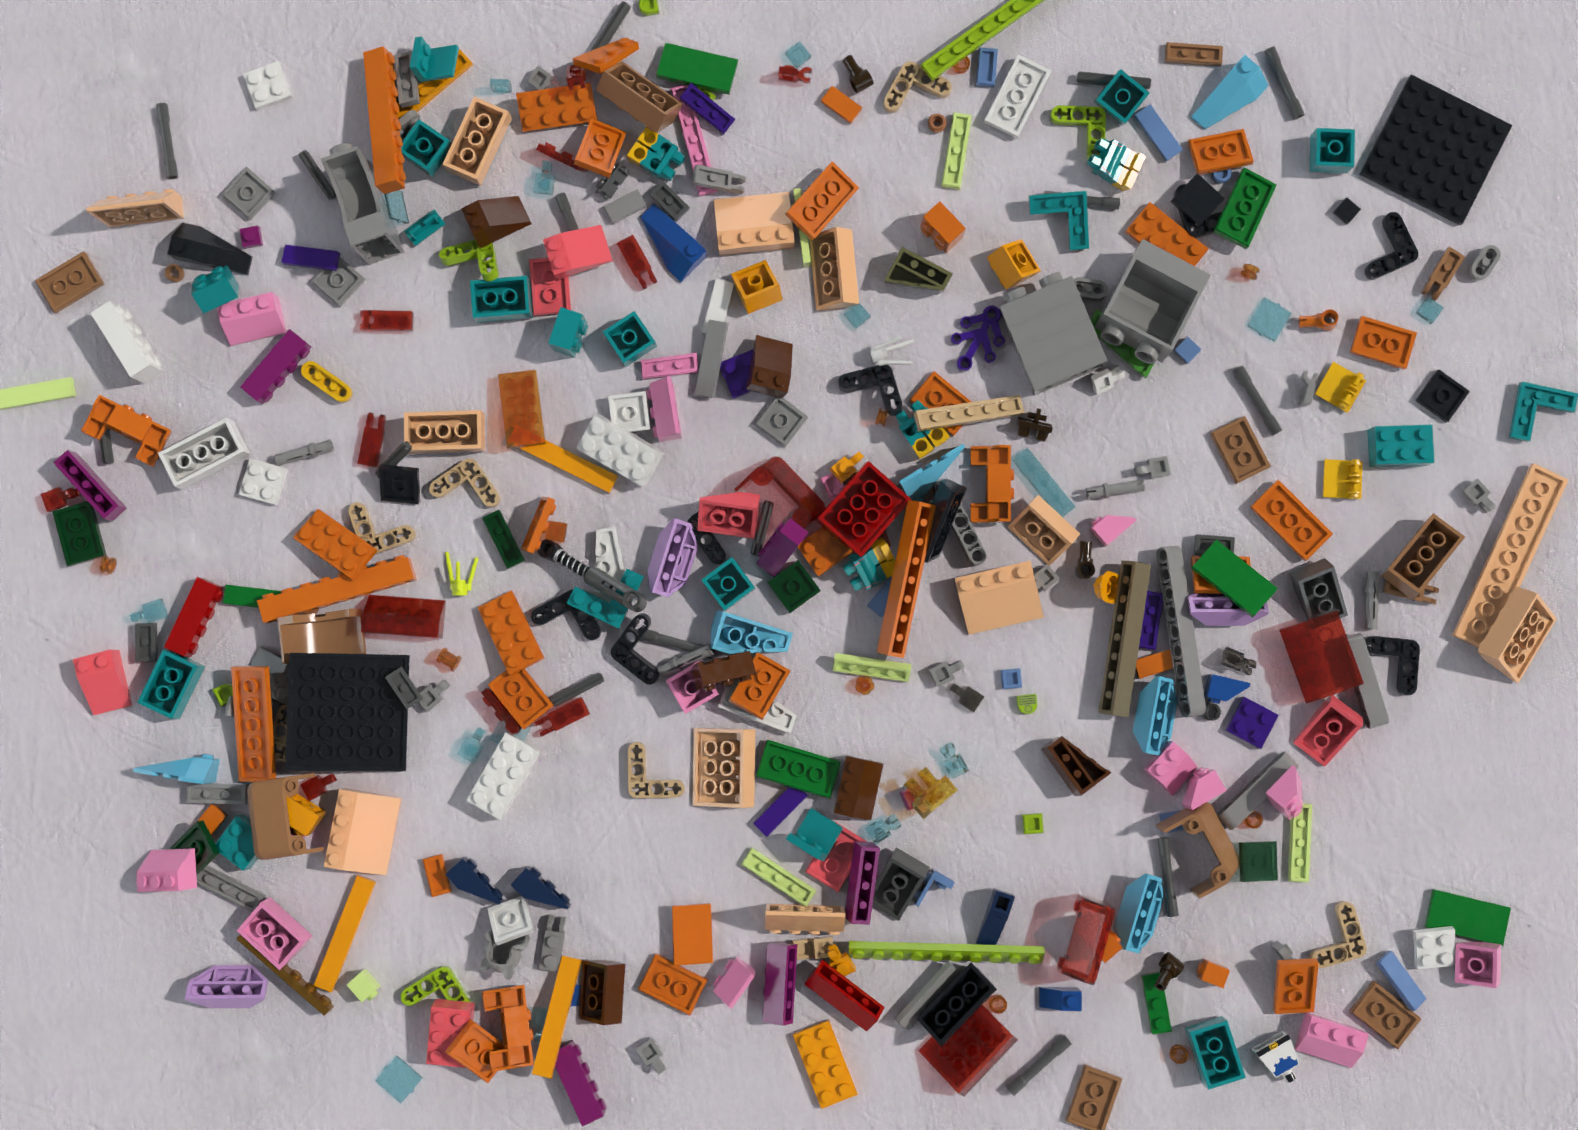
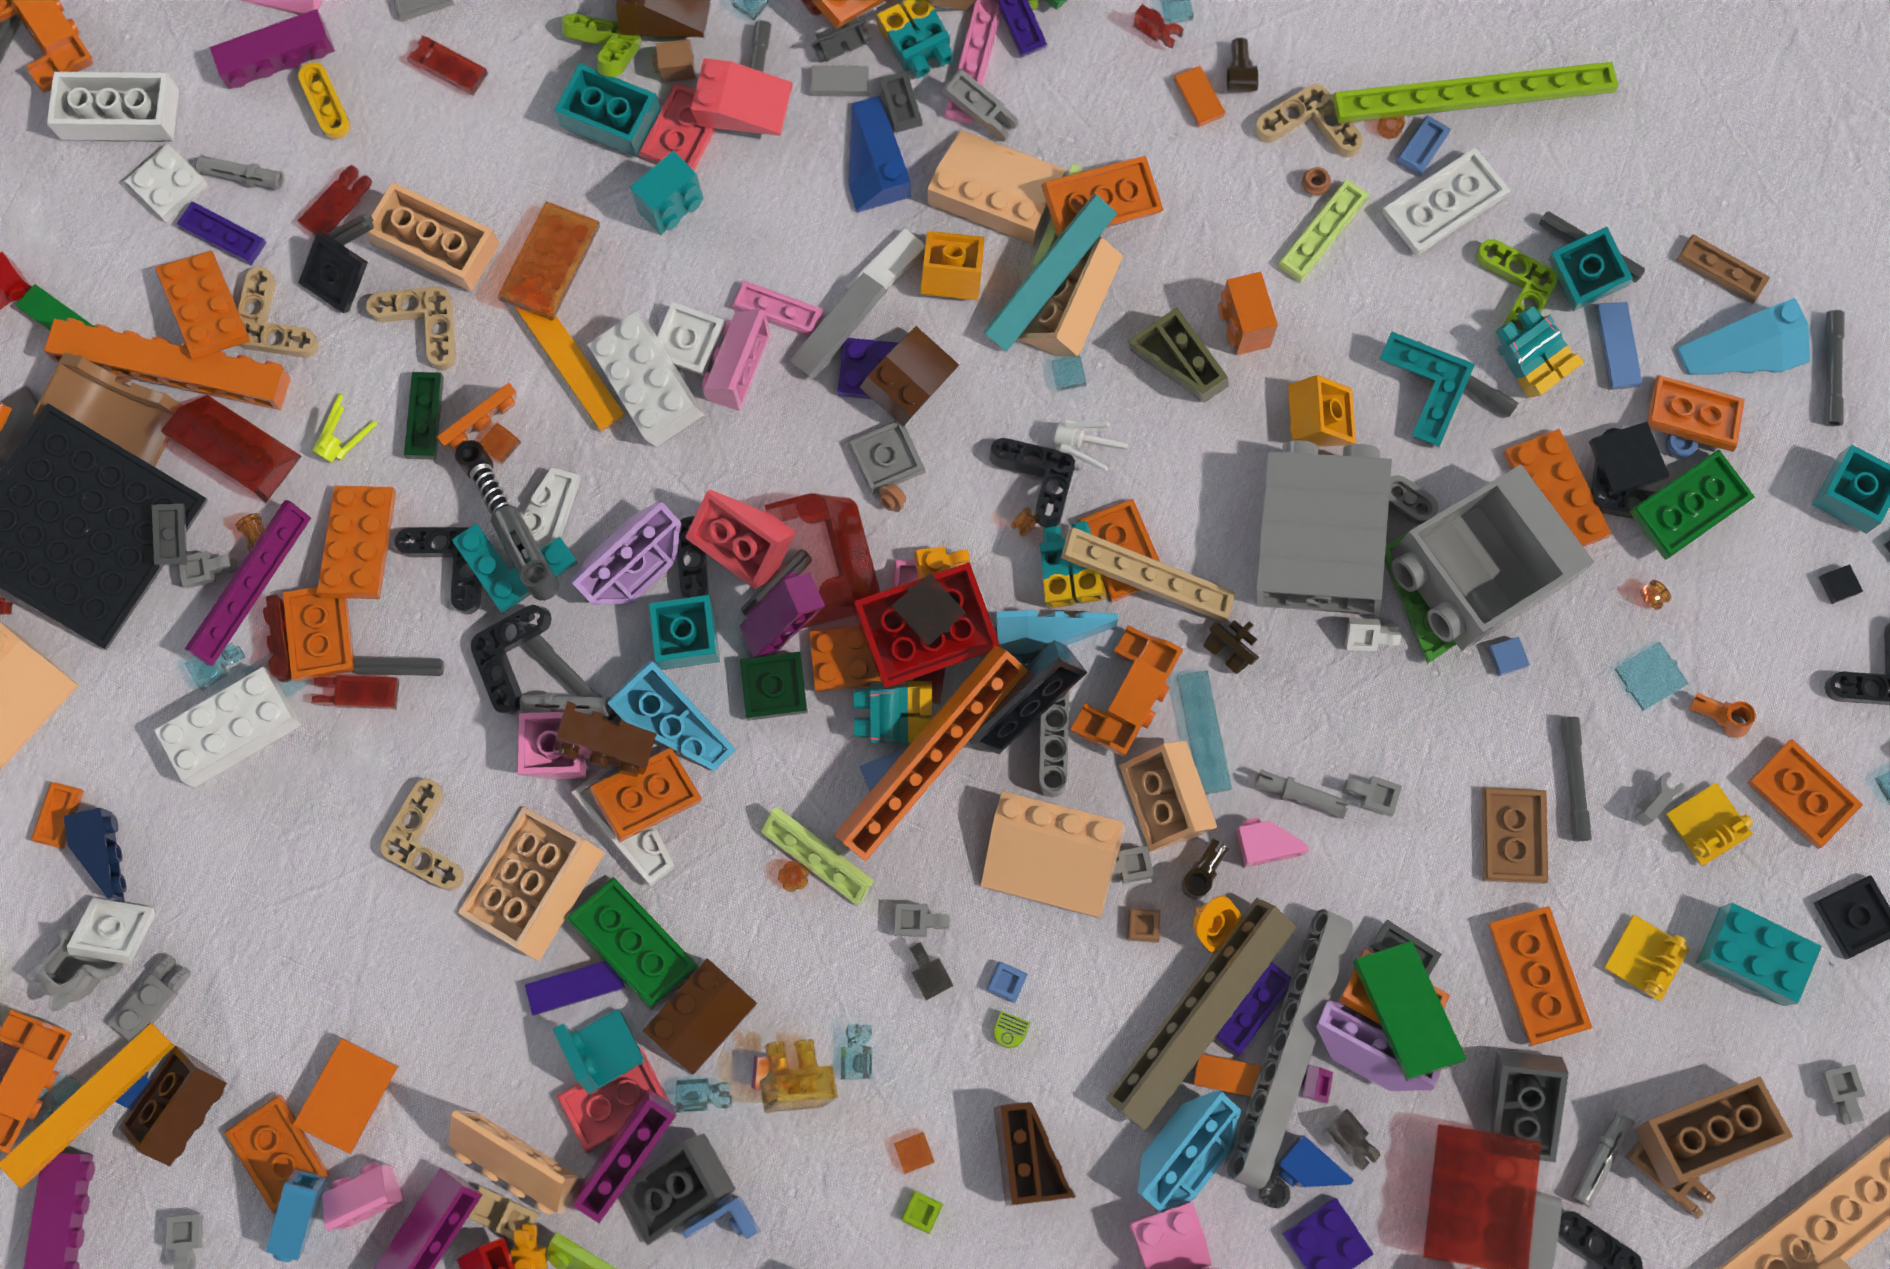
camera: 30 degrees right, 10 degrees down
(315, 494) = (221, 233): none -> dark purple tile
(465, 689) = (248, 583): none -> magenta tile
(521, 246) = (674, 60): none -> medium nougat brick
(535, 888) = (172, 903): dark blue slope -> none
(630, 338) = (744, 244): teal brick -> none
(636, 259) = (813, 152): clear red hinge -> none
(706, 1009) = (295, 1215): none -> dark azure slope
(779, 877) = (516, 1083): yellowish green tile -> none
(799, 443) = (892, 497): none -> nougat plate
(817, 263) = (1050, 272): none -> teal tile
(861, 500) = (928, 609): none -> clear smoke piece
(979, 335) = (1222, 485): dark purple plant -> none
(1011, 795) = (914, 1152): none -> clear orange tile
(1067, 608) = (1143, 925): none -> medium nougat tile
(1204, 643) = (1317, 1084): none -> magenta plate

